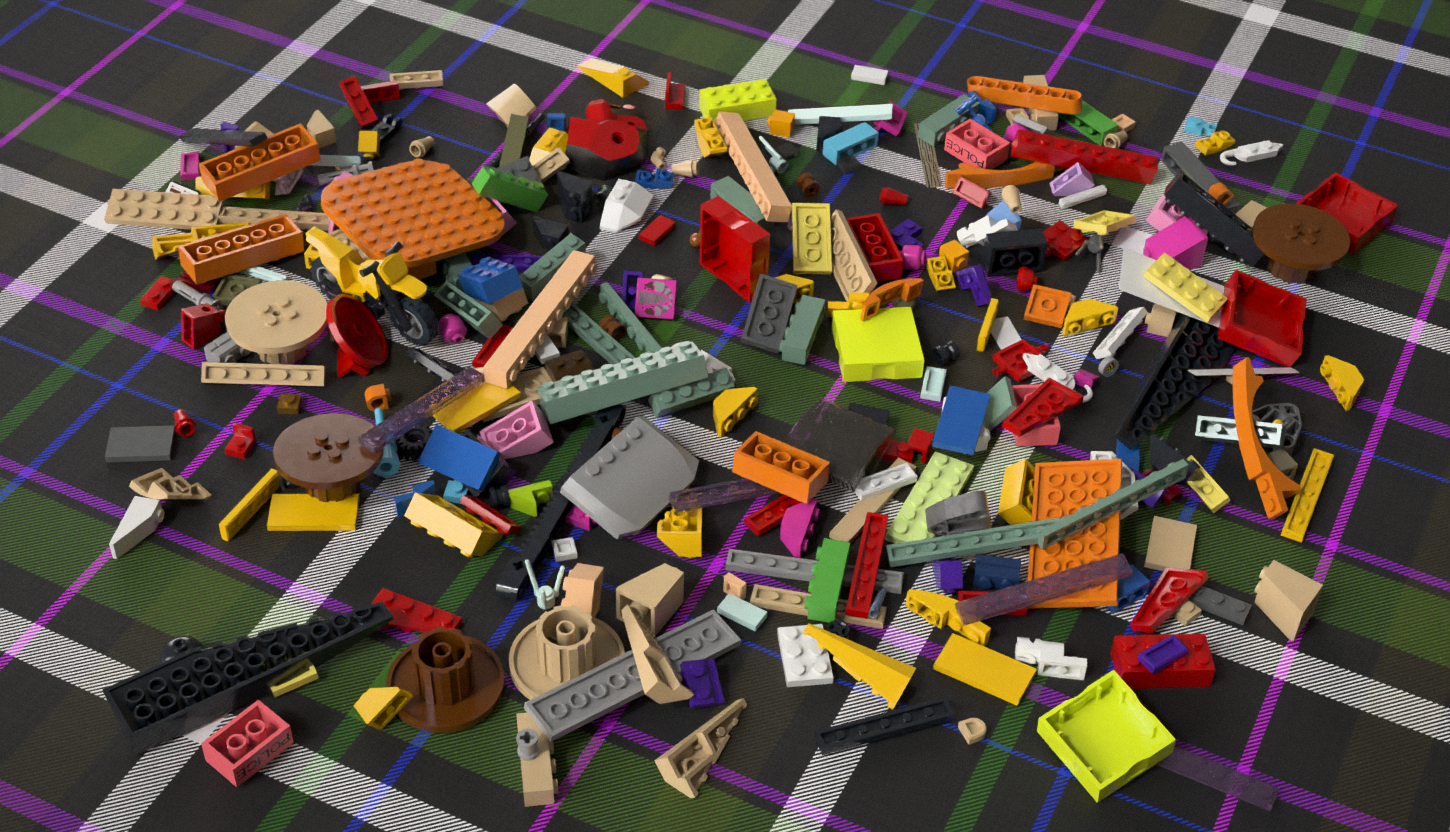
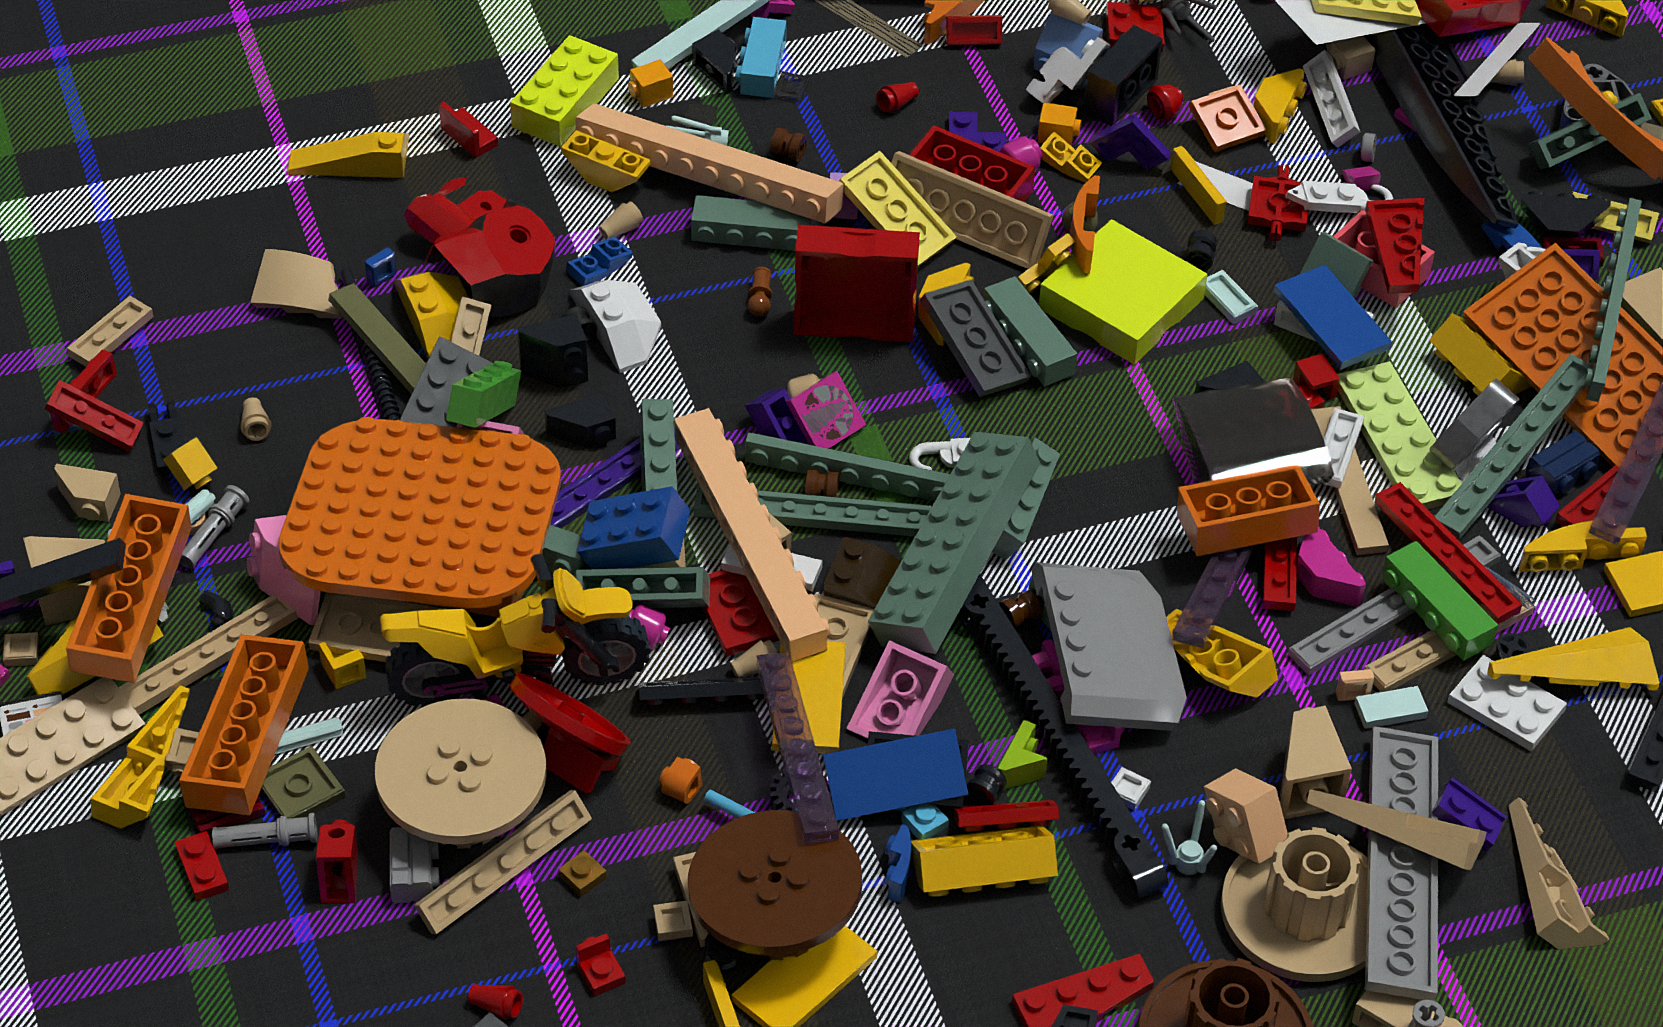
camera: 45 degrees left, 5 degrees up
(657, 158) = (565, 232): tan arm -> none
(657, 230) = (694, 326): red tile -> none
(732, 407) = (1079, 487): yellow slope -> none

